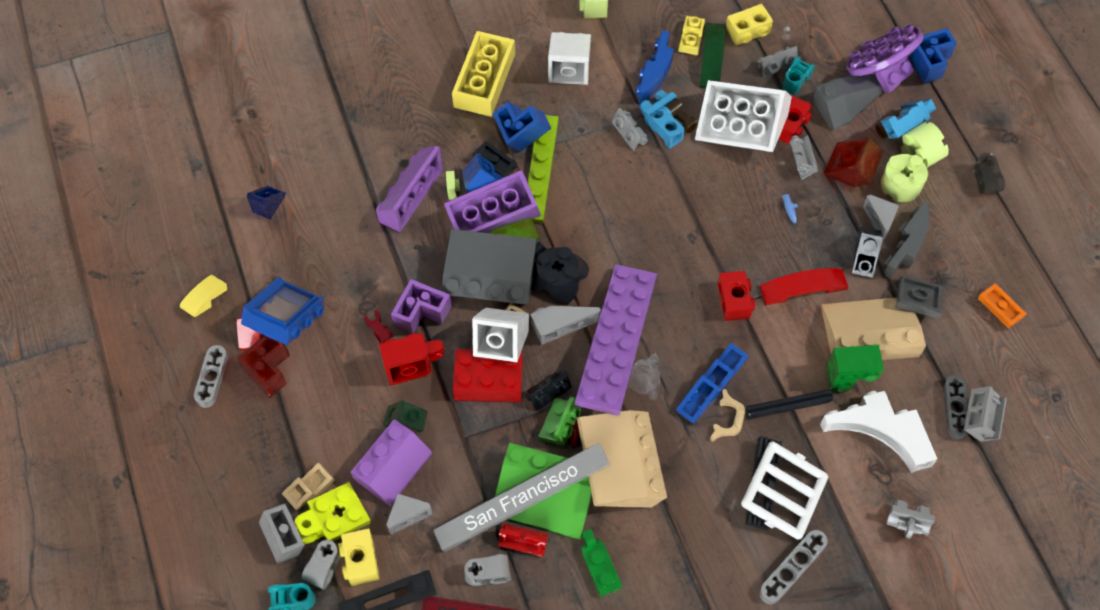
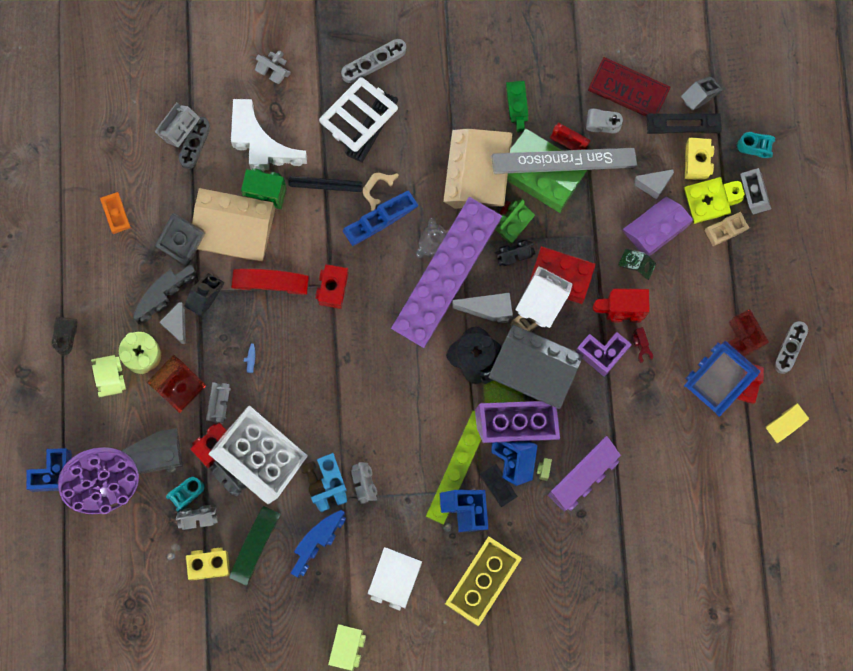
camera: 165 degrees left, 15 degrees up
(265, 201) = (716, 505): clear blue slope -> none
(321, 567) = (728, 161): light grey piece -> none
(691, 35) = (266, 573): light yellow slope -> none
(905, 119) = (110, 407): dark azure hips -> none

